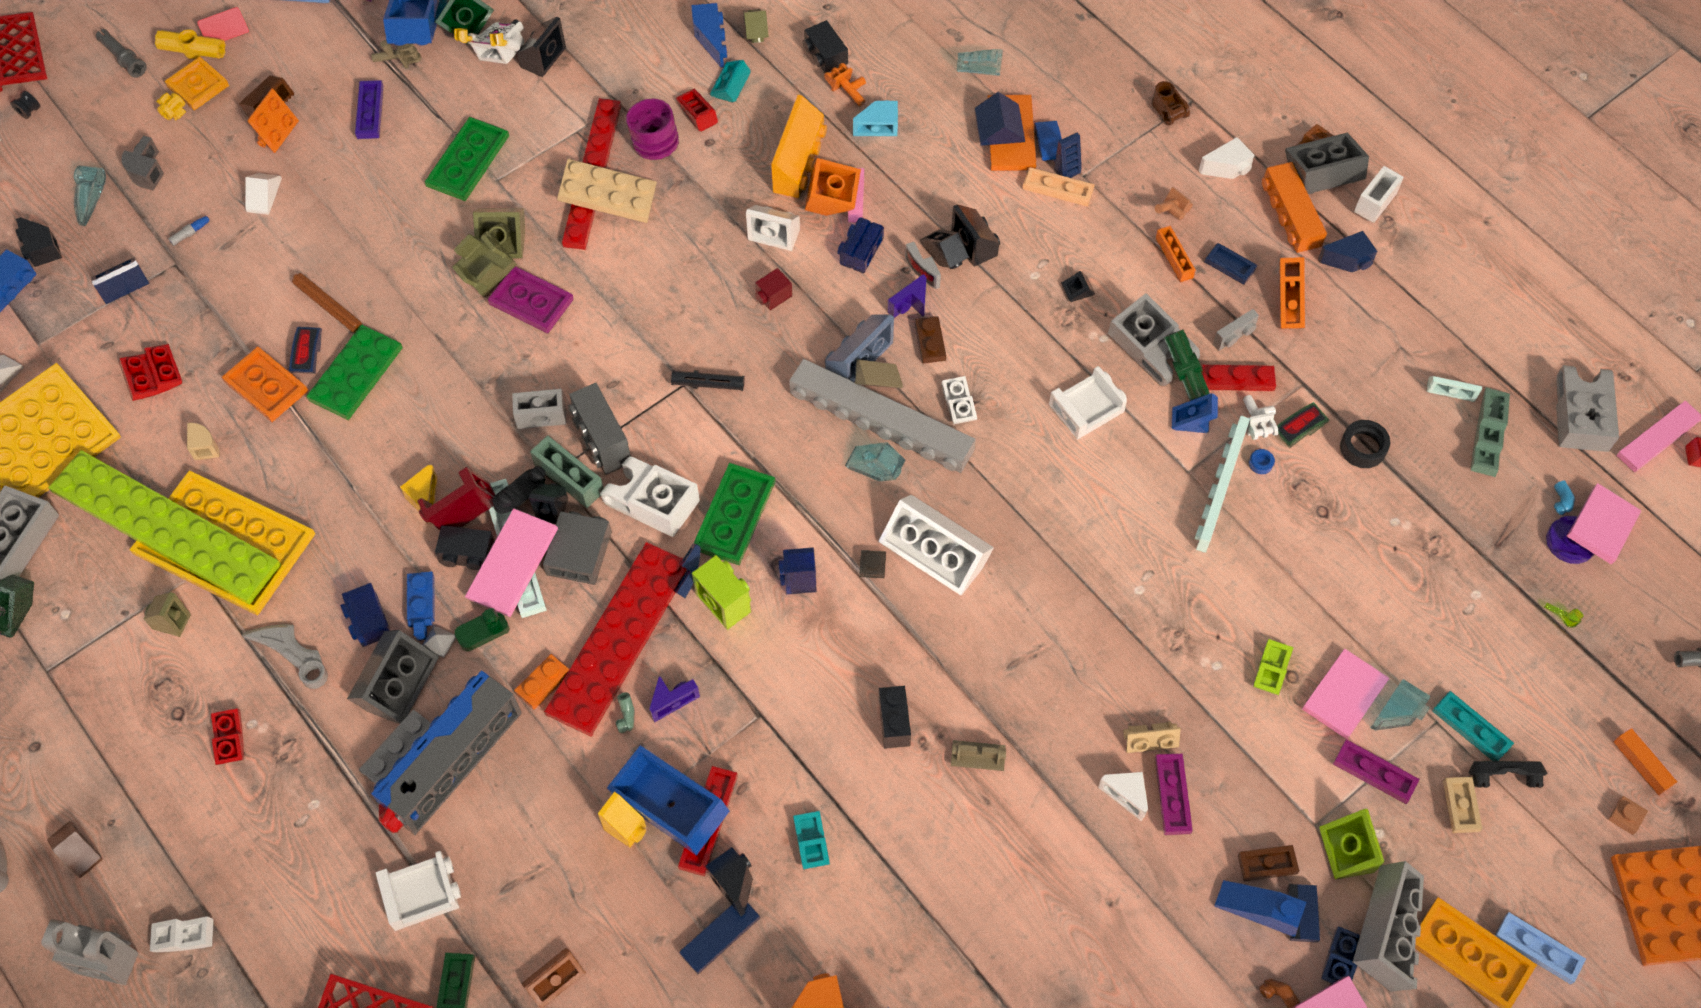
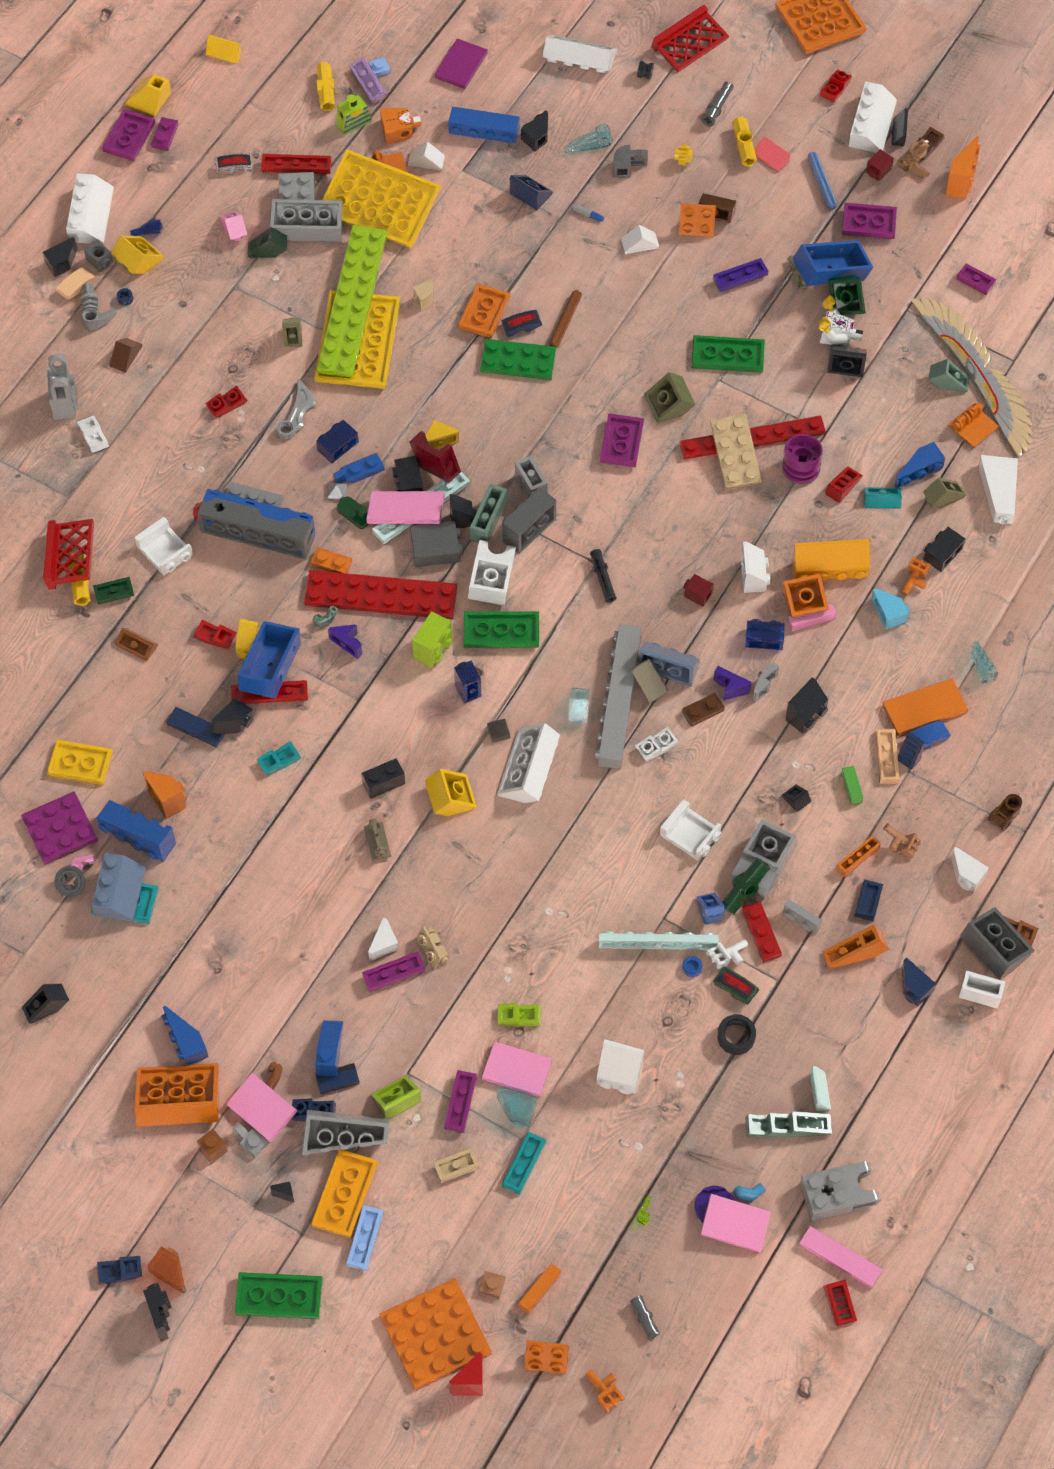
camera: 70 degrees right, 0 degrees up
(150, 372) = (466, 242): red slope -> none
(197, 83) = (713, 161): light orange plate -> none
(393, 676) = (300, 474): dark grey slope -> none
(482, 262) = (636, 398): olive panel -> none
(518, 490) = (453, 486): black piece -> none
(587, 866) = (214, 635): none -> red slope
(691, 563) = (446, 612): dark blue slope -> none
(944, 646) = (450, 792): none -> yellow slope
(945, 248) = (785, 691): black slope -> none
(999, 121) = (926, 694): dark blue slope -> none
(1084, 229) = (852, 785): none -> bright green piece
(1268, 863) = (364, 1045): reddish brown plate -> none
(1294, 207) = (941, 931): orange brick -> none
(1389, 574) = (620, 1067): none -> white slope
(1484, 769) = (489, 1174): black piece -> none

